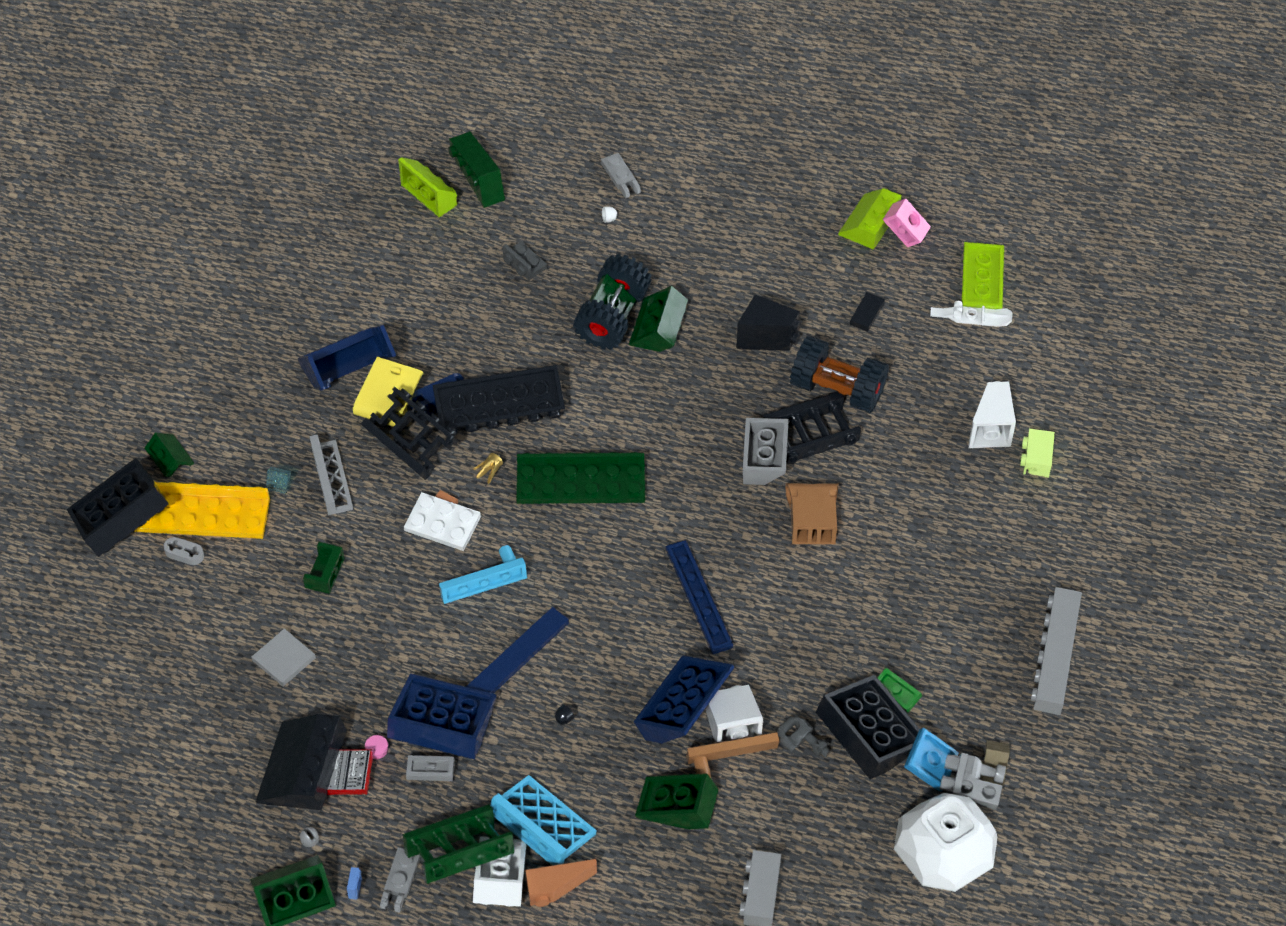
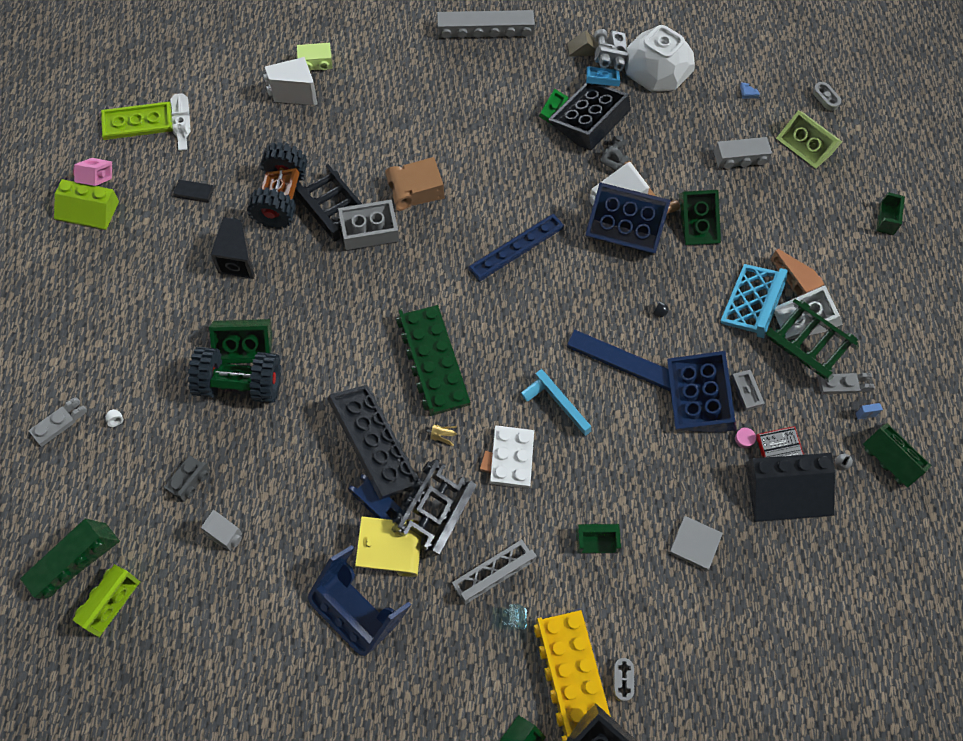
camera: 110 degrees left, 10 degrees up
(456, 271) = (222, 531): none -> light grey slope

